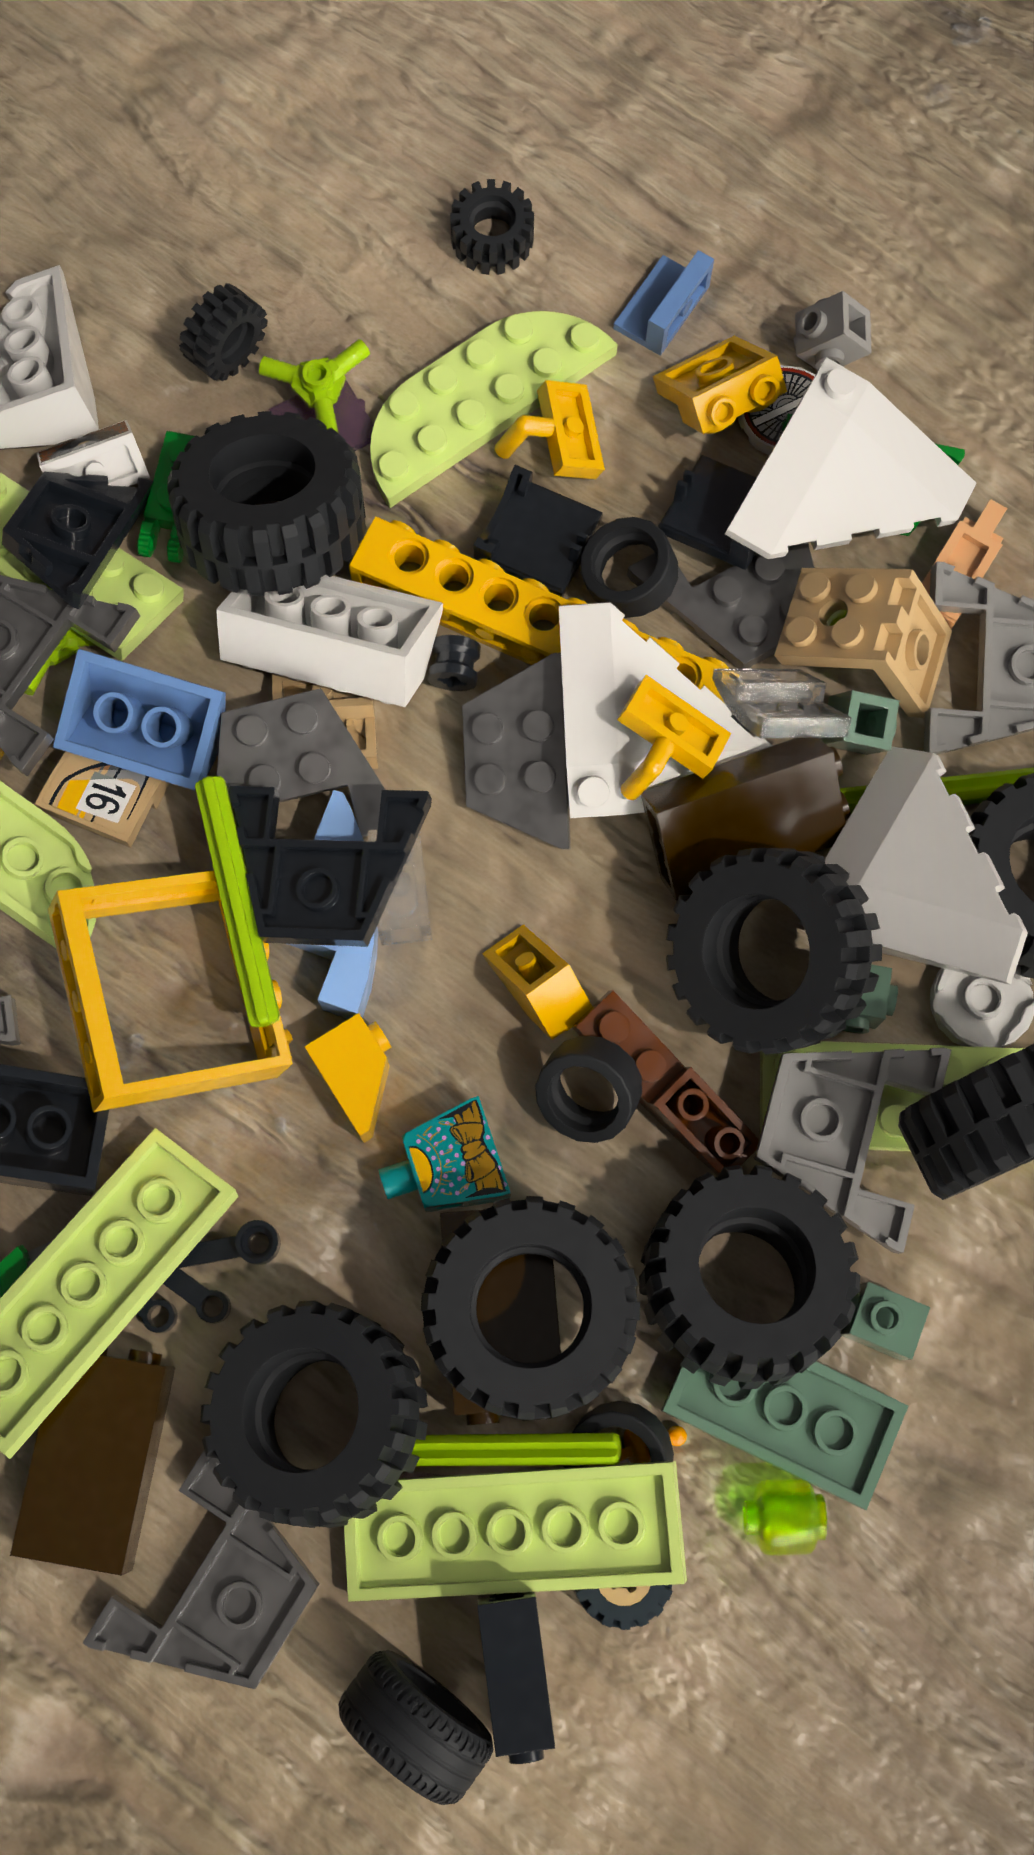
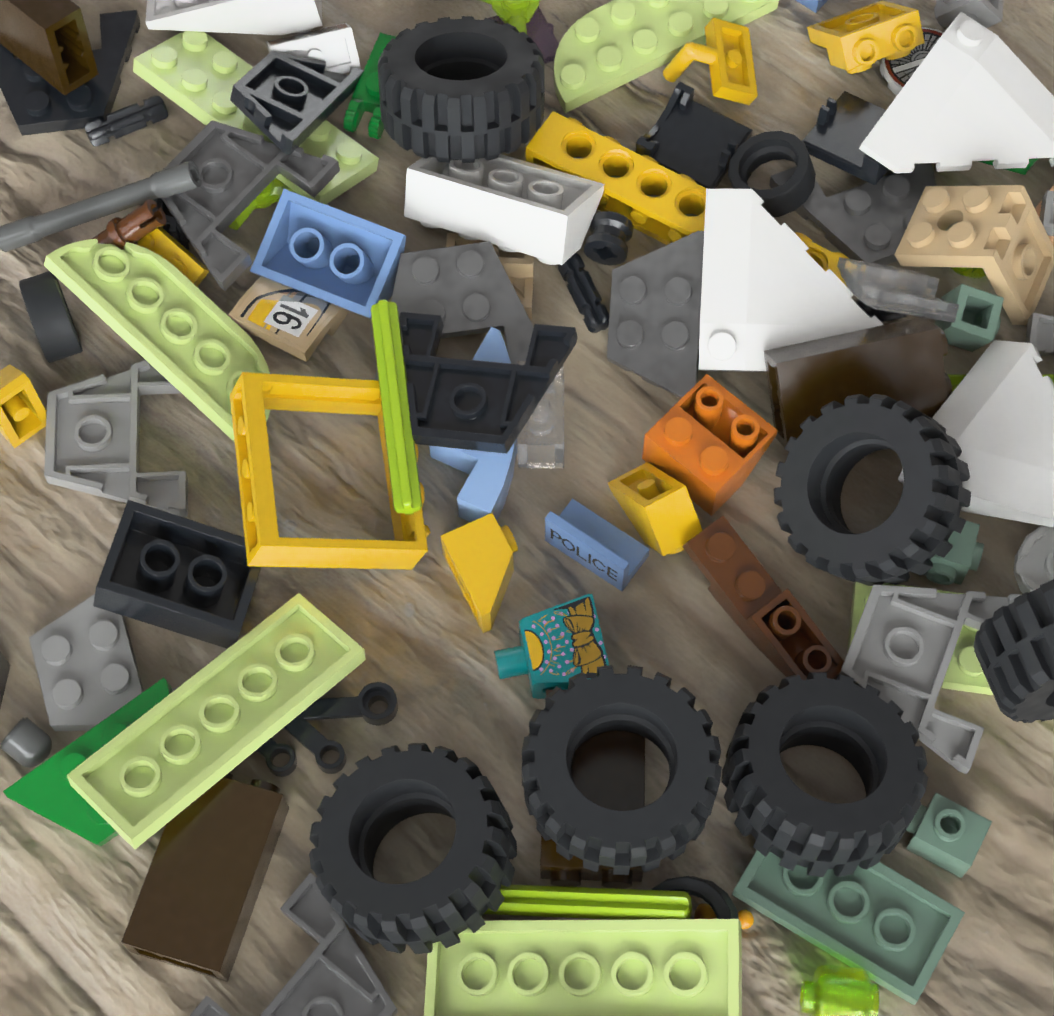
camera: 10 degrees right, 10 degrees down
(435, 732) = (585, 294): none -> black axle
(477, 1028) = (595, 544): none -> medium blue panel
(574, 1119) = (667, 622): black tyre -> none
(588, 900) = (708, 443): none -> orange slope
(674, 731) = (797, 298): yellow plate -> none

